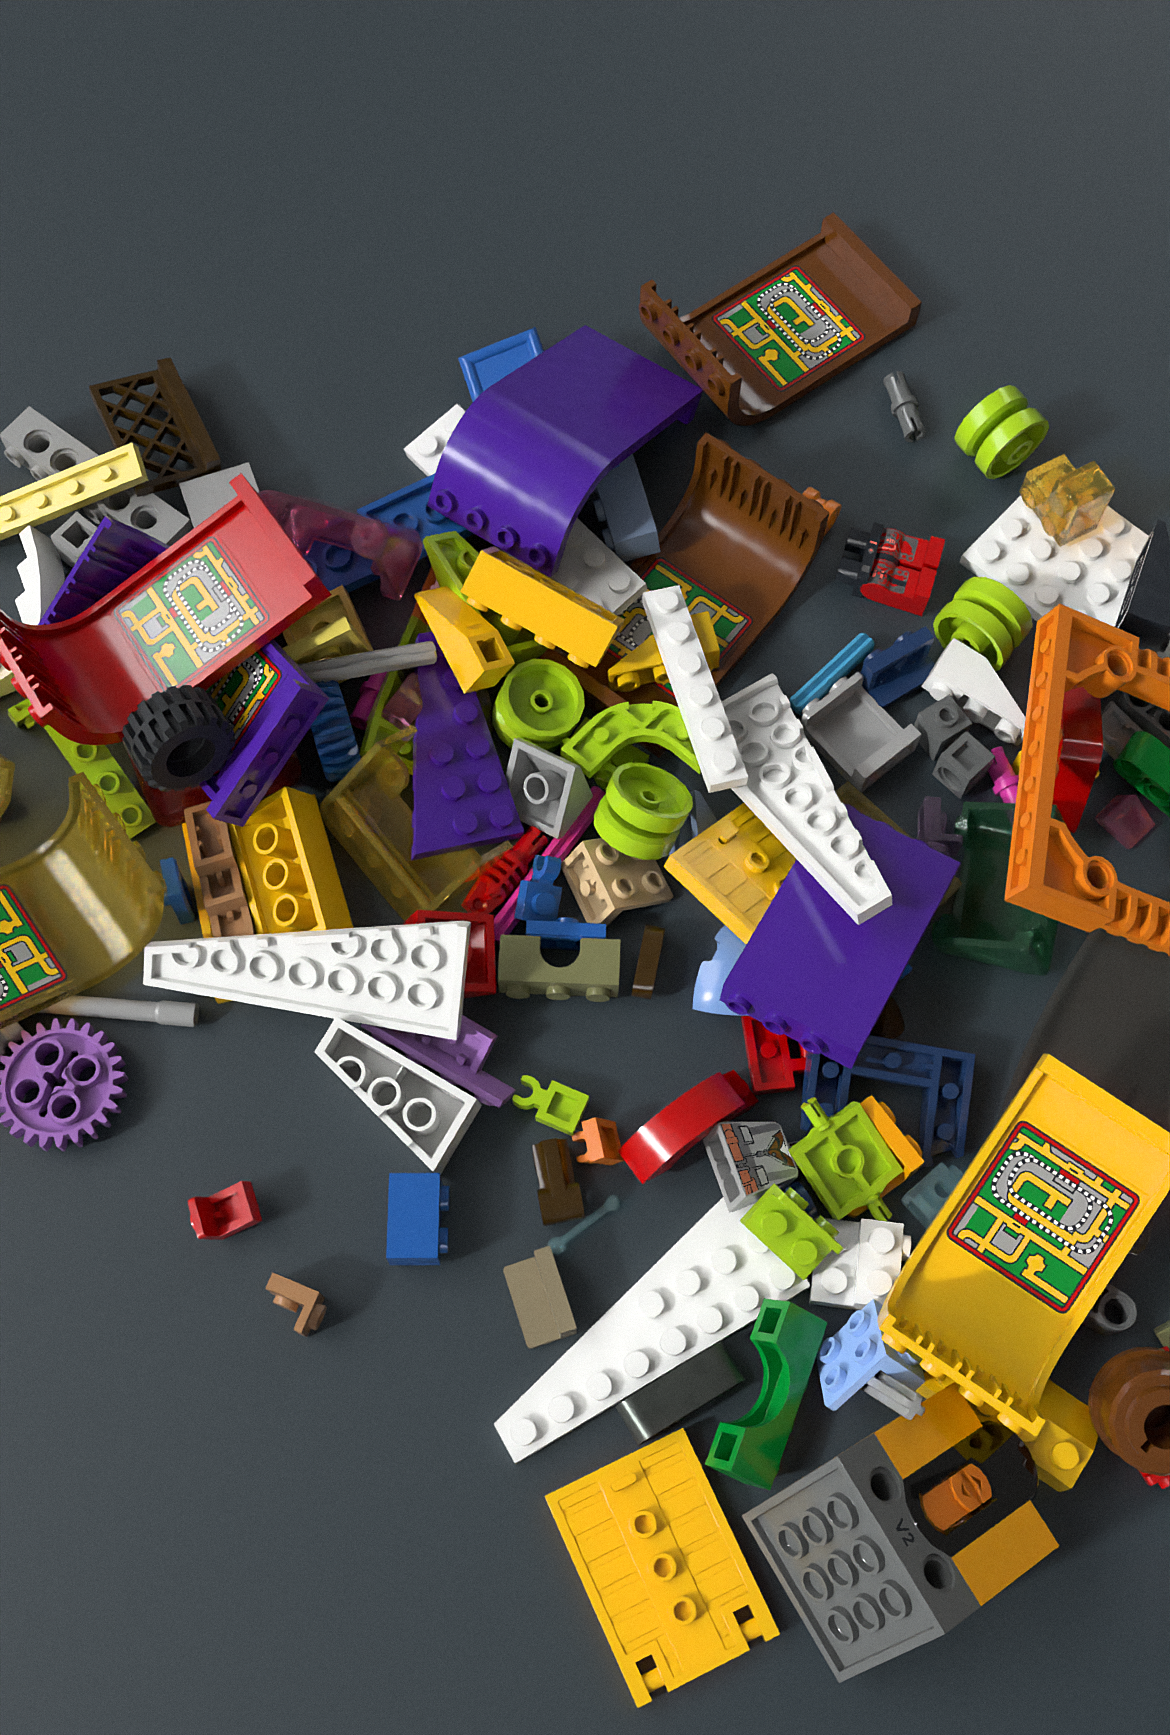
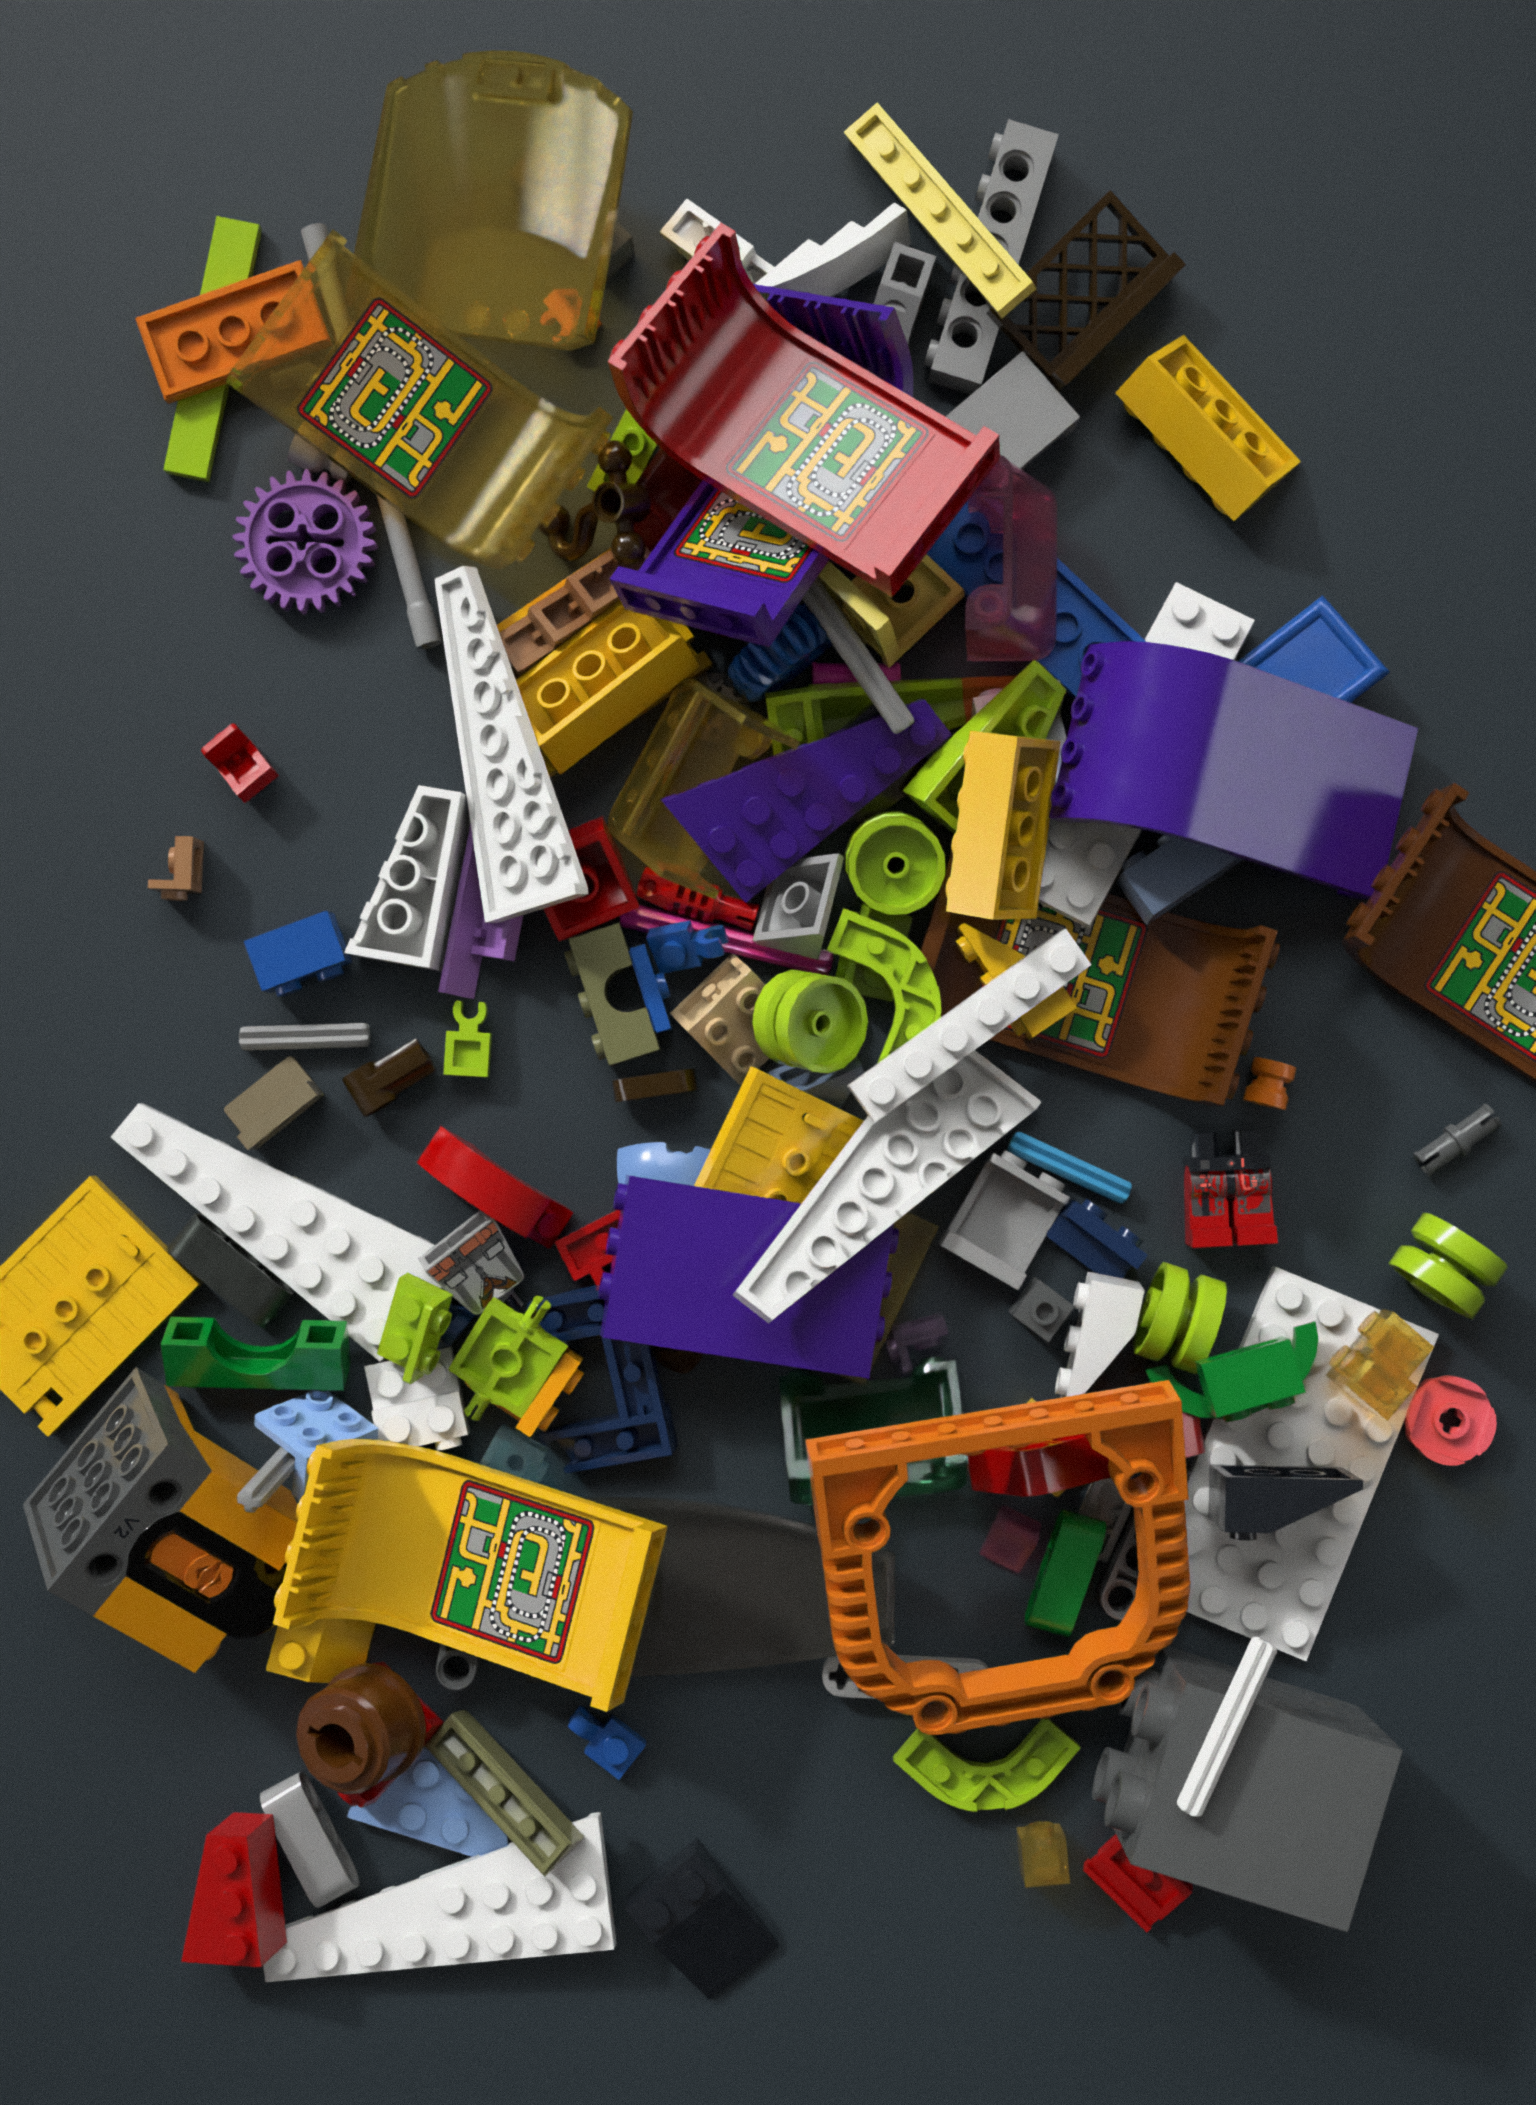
camera: 70 degrees right, 20 degrees up
(177, 891) = (541, 569): blue plate -> none
(178, 738) = (681, 502): black tyre -> none
(190, 812) = (611, 503): none -> dark brown piece
(298, 391) = (1207, 427): none -> yellow slope
(404, 703) = (837, 718): clear pink slope -> none
(466, 639) = (931, 752): yellow slope -> none
(491, 1248) = (304, 1036): none -> light grey axle
(557, 1244) = (334, 1099): clear light blue hinge -> none
(601, 1142) = (446, 1105): orange tile -> none
(963, 765) = (1000, 1346): dark grey brick -> none
(1003, 777) = (1012, 1390): dark pink pin -> none
(1049, 574) = (1248, 1377): none -> green piece
(1139, 474) = (1461, 1442): none -> coral plate

